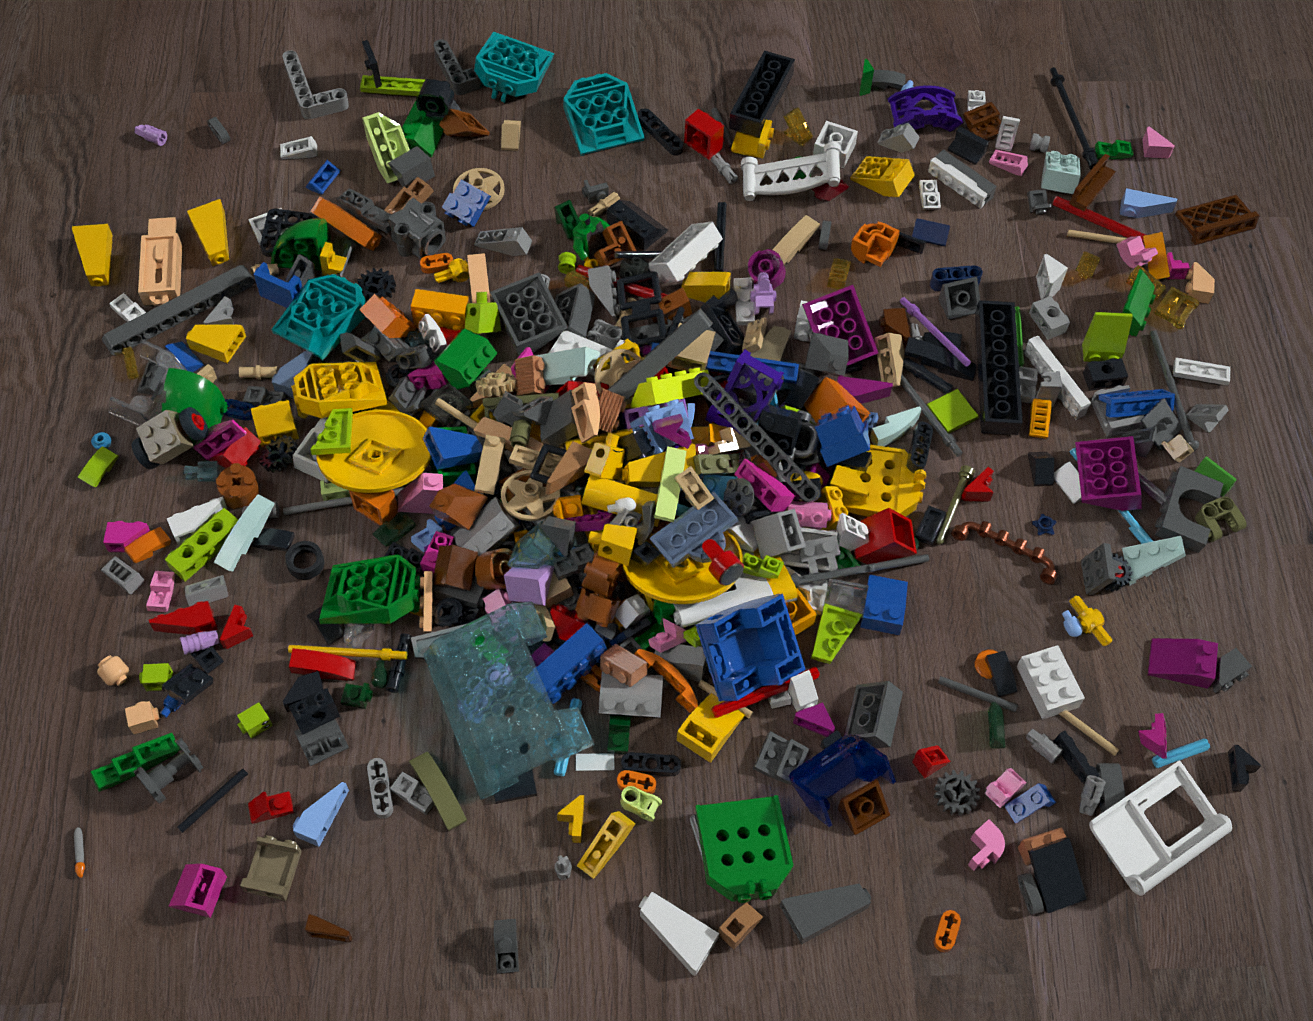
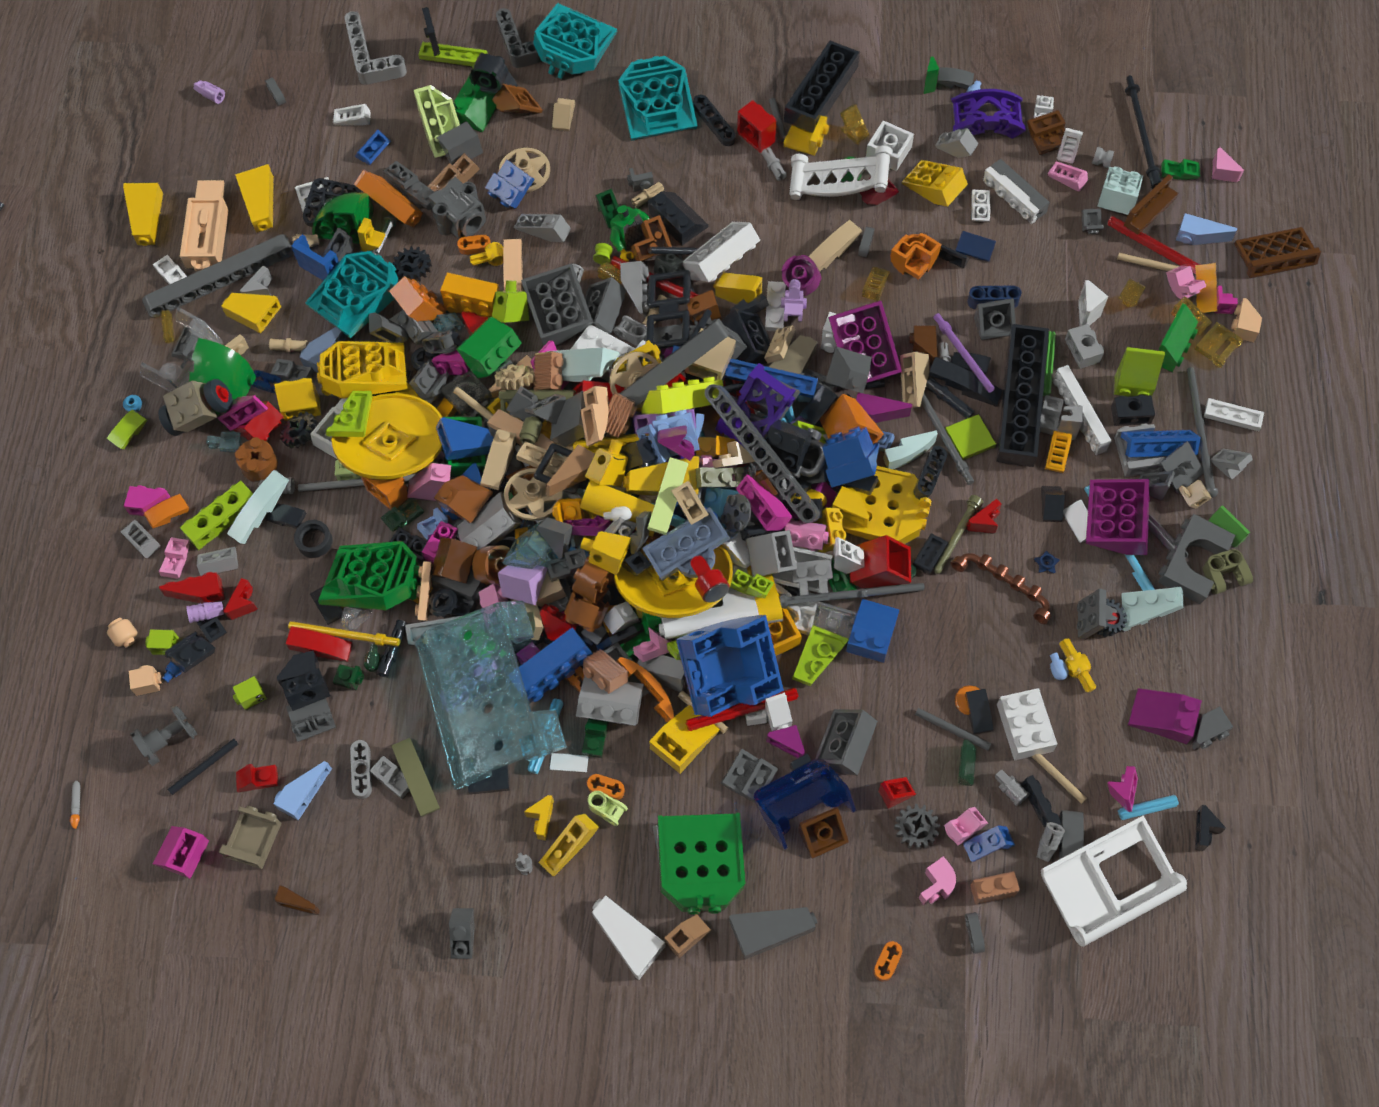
camera: 10 degrees right, 5 degrees up
(144, 755) = (141, 718): green slope -> none
(185, 356) = (219, 323): blue slope -> none
(187, 523) = (204, 493): white slope -> none
(430, 330) = (459, 316): white slope -> none
(656, 757) = (627, 777): black beam -> none
(721, 226) = (761, 232): black axle -> none
(968, 146) = (1028, 156): black panel -> none
(1057, 875) = (1003, 917): black tile -> none

